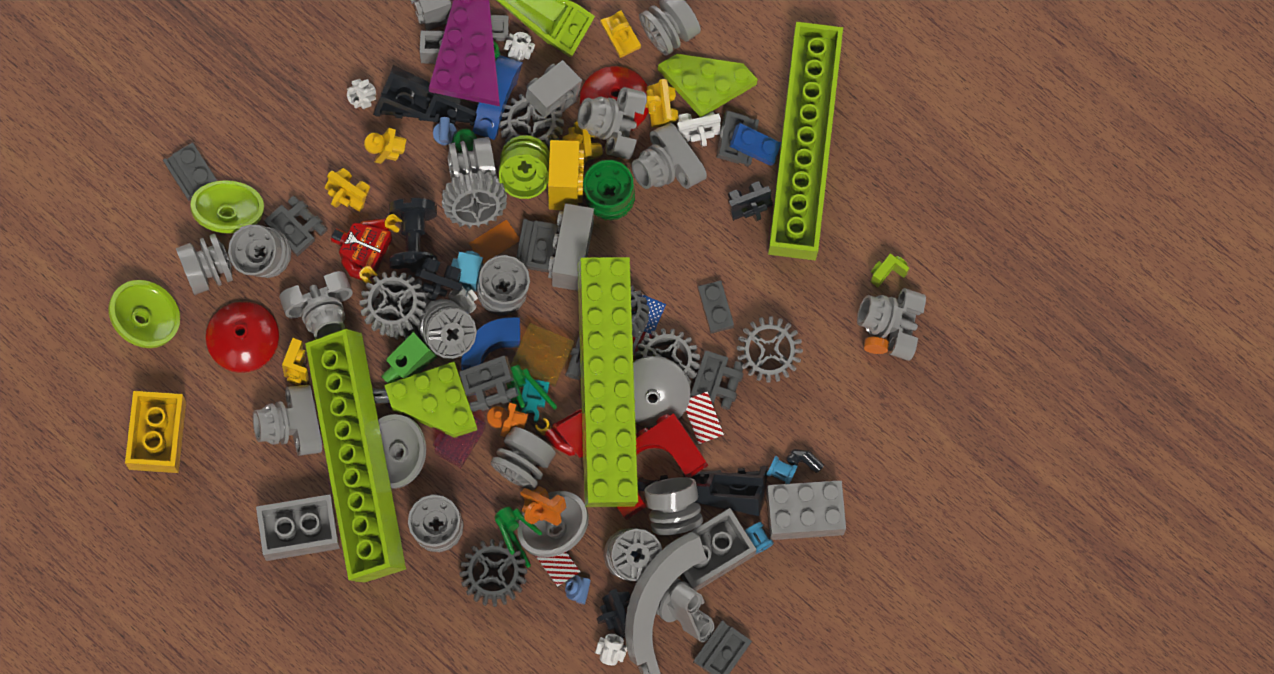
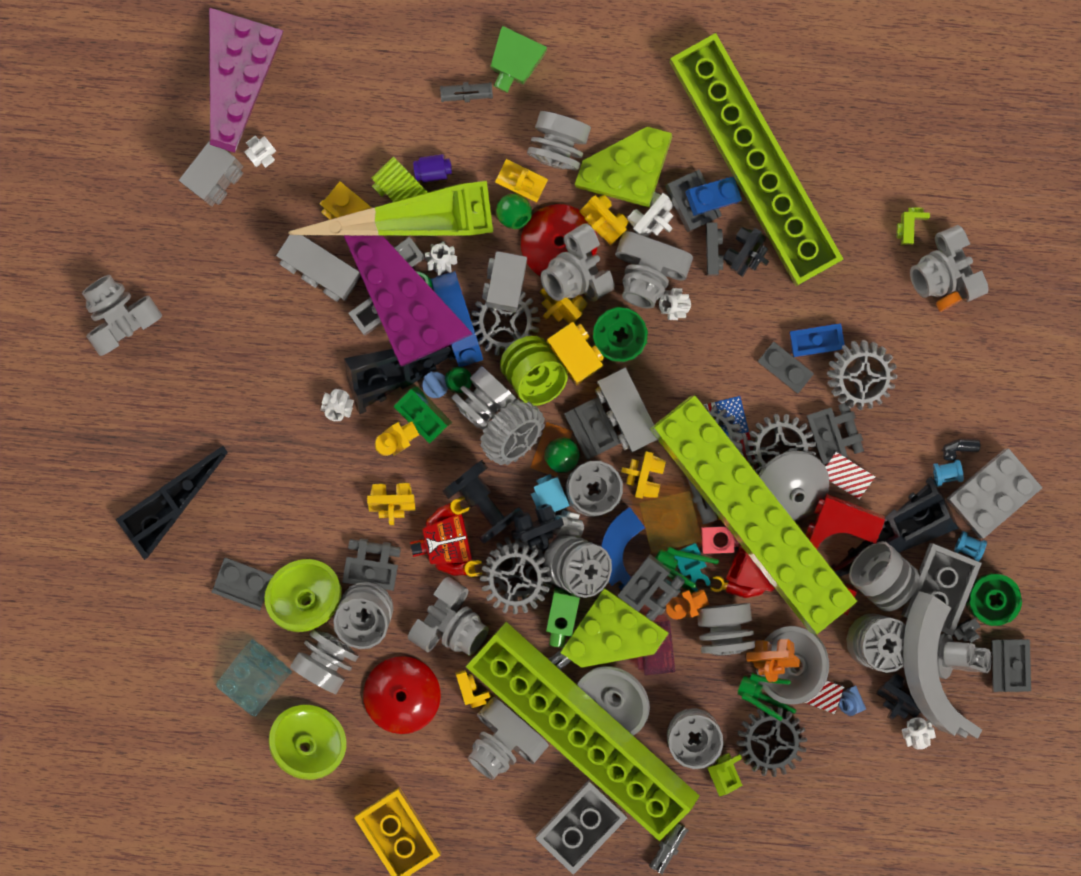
camera: 30 degrees left, 15 degrees up
(142, 241) = (253, 678): none -> clear light blue bracket
(165, 75) = (154, 516): none -> black wedge
(352, 596) = (668, 848): none -> dark grey pin
(419, 144) = (425, 415): none -> green hinge
(438, 570) = (724, 774): none -> lime bracket
(498, 244) = (562, 455): none -> green piece
(542, 313) = (644, 487): none -> yellow hips
(562, 384) = (708, 546): none -> coral brick
(598, 51) = (513, 211): none -> green piece
(667, 199) = (675, 304): none -> white gear
(710, 596) = (967, 630): none -> dark grey plate
(720, 190) = (713, 237): none -> dark grey plate
(752, 576) = (1008, 596): none -> green brick
(754, 302) = (816, 340): none -> blue plate

